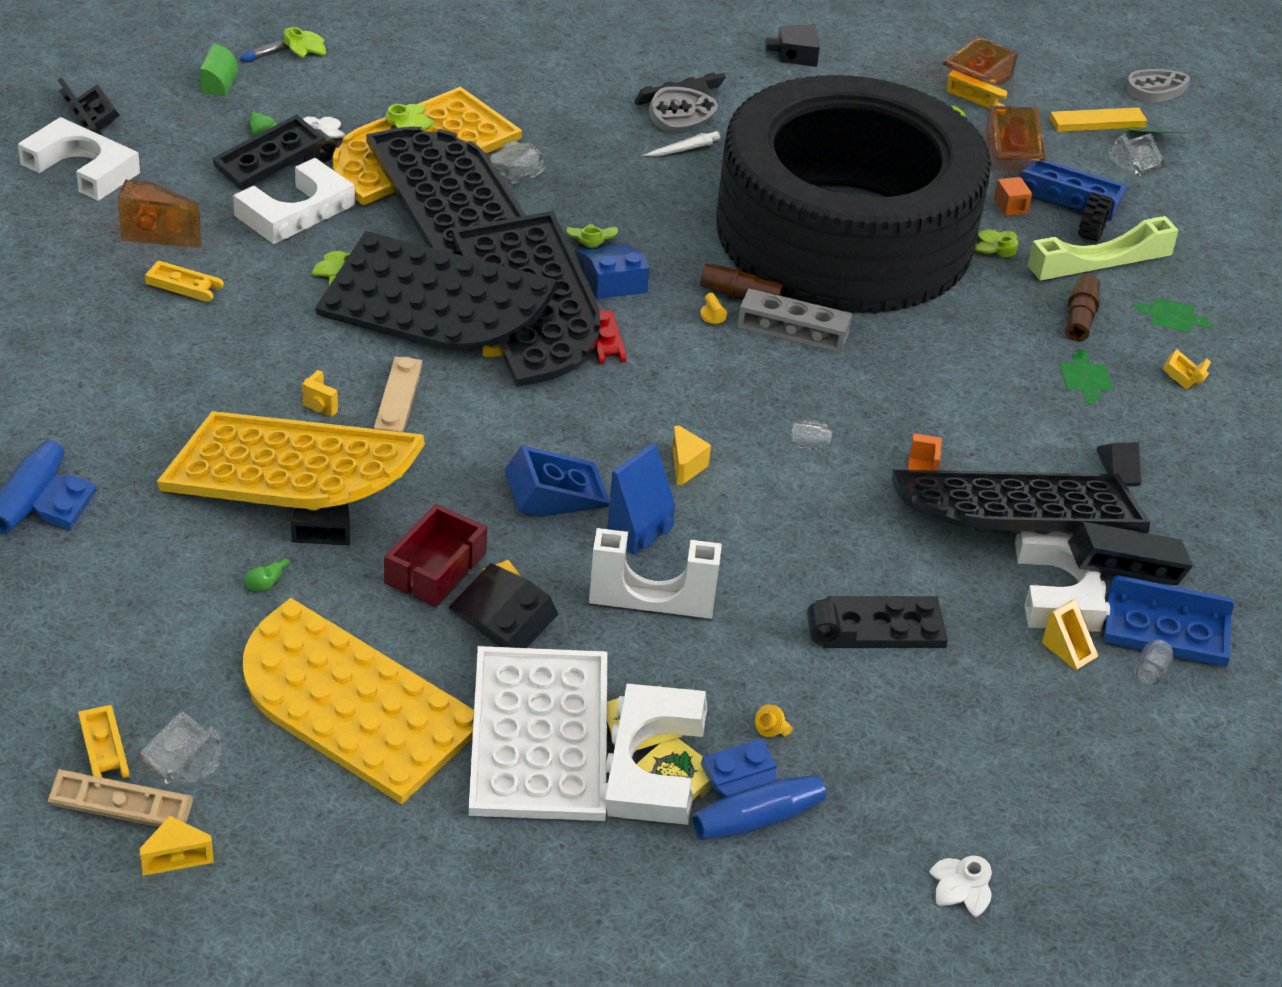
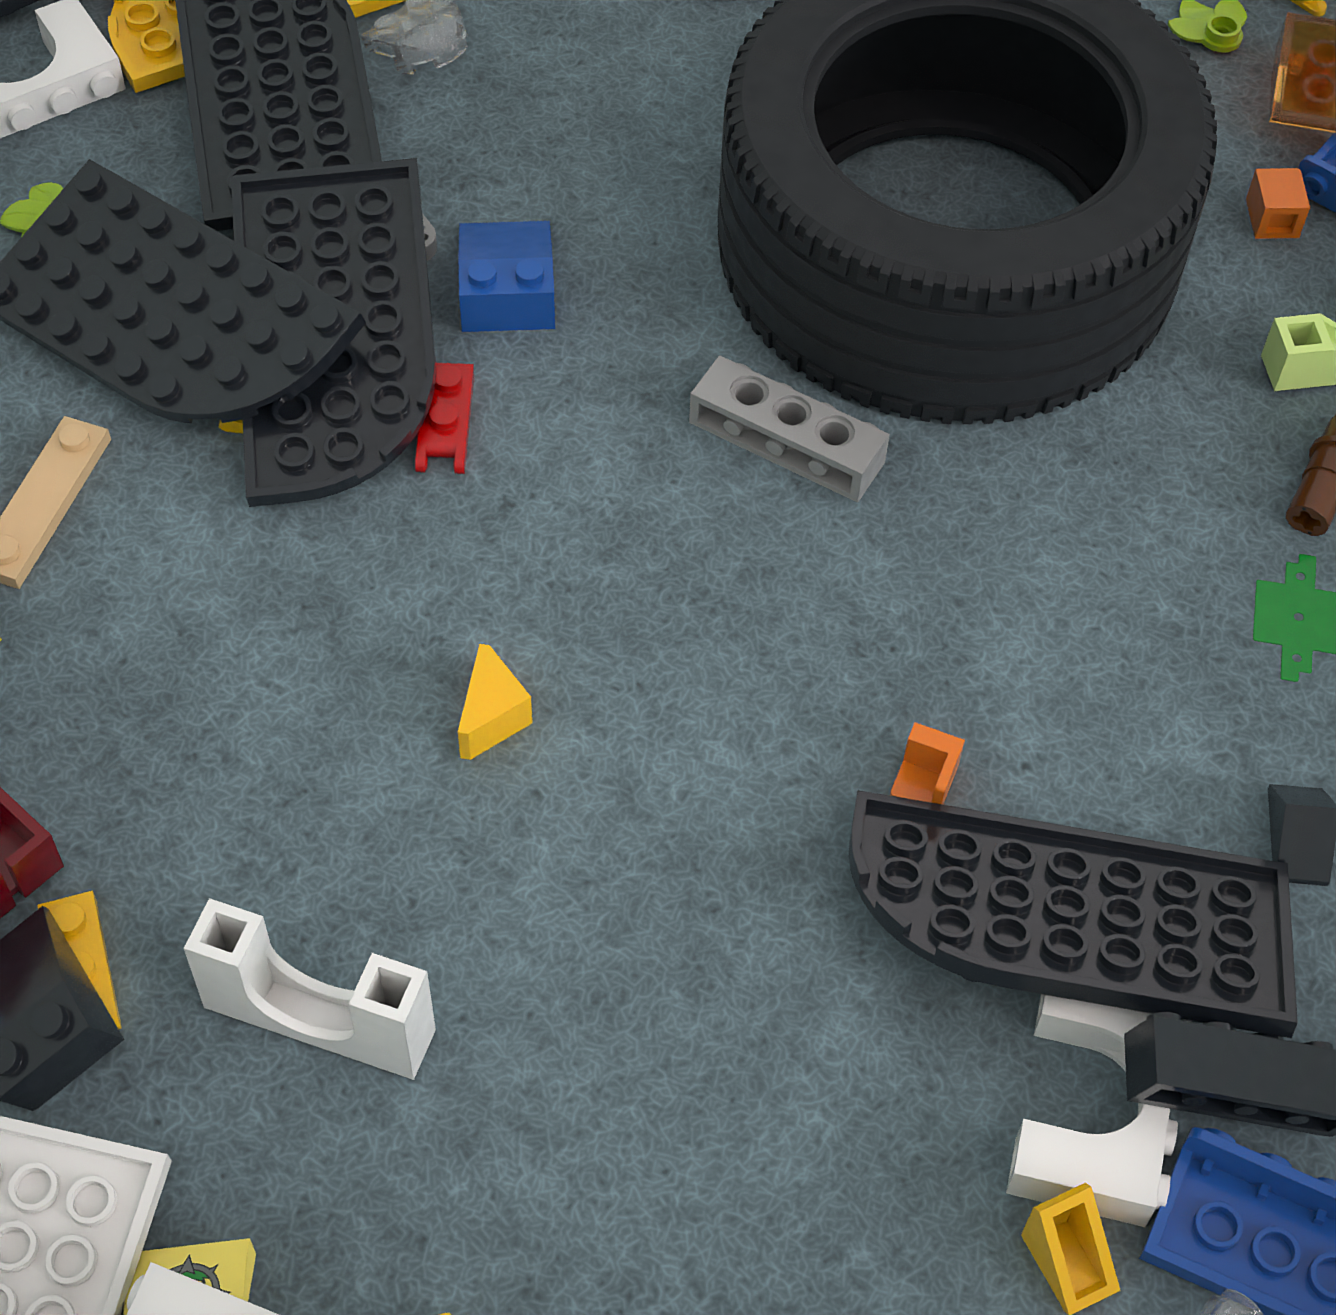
camera: 15 degrees right, 15 degrees up
(554, 483) = (235, 734): blue slope -> none
(591, 235) = (495, 200): lime plate -> none
(641, 499) = (348, 815): blue slope -> none
(694, 142) = (720, 28): white bar -> none
(713, 310) = (651, 389): yellow plate -> none
(735, 282) = (709, 334): reddish brown piece -> none
(811, 434) = (732, 688): clear brick -> none
(829, 629) = (619, 1146): black hinge -> none
(1003, 243) = (1219, 298): lime plate -> none

